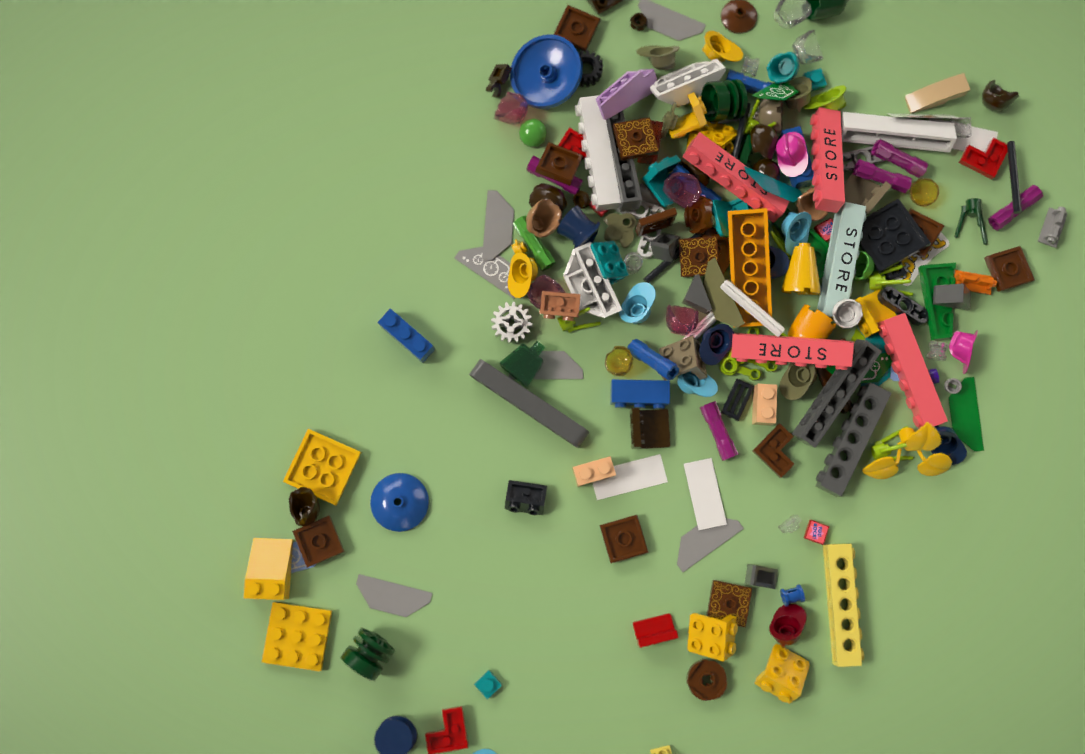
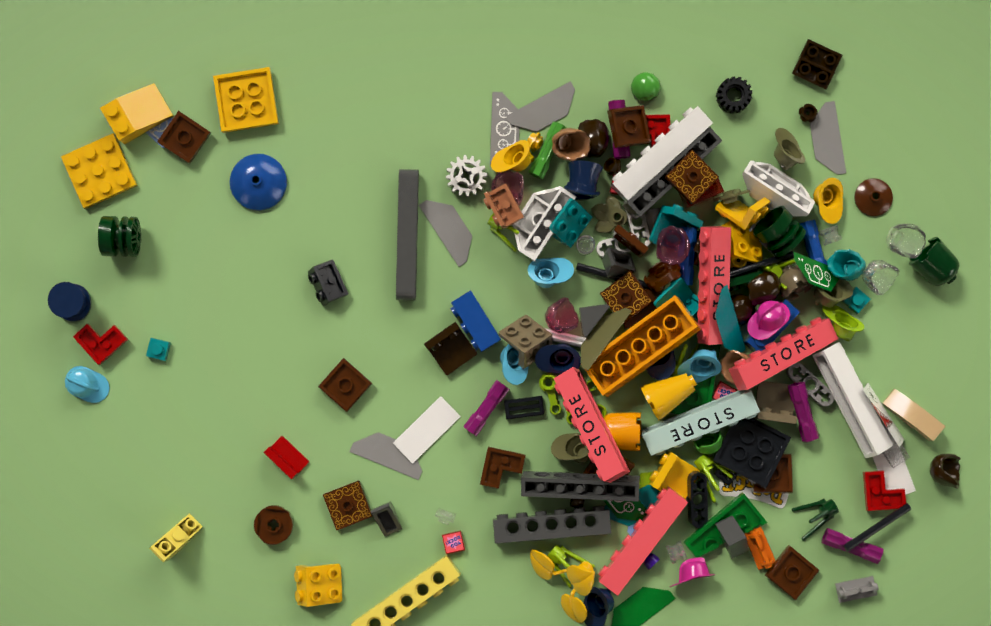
camera: 60 degrees right, 5 degrees up
(304, 506) = (203, 106): dark brown hair -> none
(391, 596) = (178, 226): light grey sticker -> none
(406, 335) = (398, 96): blue brick -> none
(498, 76) = (675, 24): dark brown plate -> none
(512, 109) = (653, 55): clear pink hair -> none
(524, 363) = (438, 209): clear green torso -> none
(546, 71) = (706, 62): blue dish -> none
(577, 27) = (765, 63): reddish brown plate -> none
(594, 471) = (384, 324): light nougat brick -> none
(619, 361) = (491, 287): clear yellow hair -> none
(626, 92) = (730, 142): lavender wedge -> none
(632, 477) = (400, 357): white sticker -> none
(662, 365) = (509, 313): blue axle -> none
(712, 636) = (311, 508): yellow bracket -> none
(751, 307) = (605, 369): white axle -> none
(764, 404) = (533, 432): light nougat brick -> none
(788, 624) = (360, 563): dark red piece -> none
(792, 595) = (387, 553): blue bush -> none
(847, 313) = (654, 452): white hair -> none
(910, 163) = (827, 404): magenta axle -> none
(924, 192) = (812, 456): clear yellow hair -> none
(953, 381) = (650, 584): light grey hinge -> none

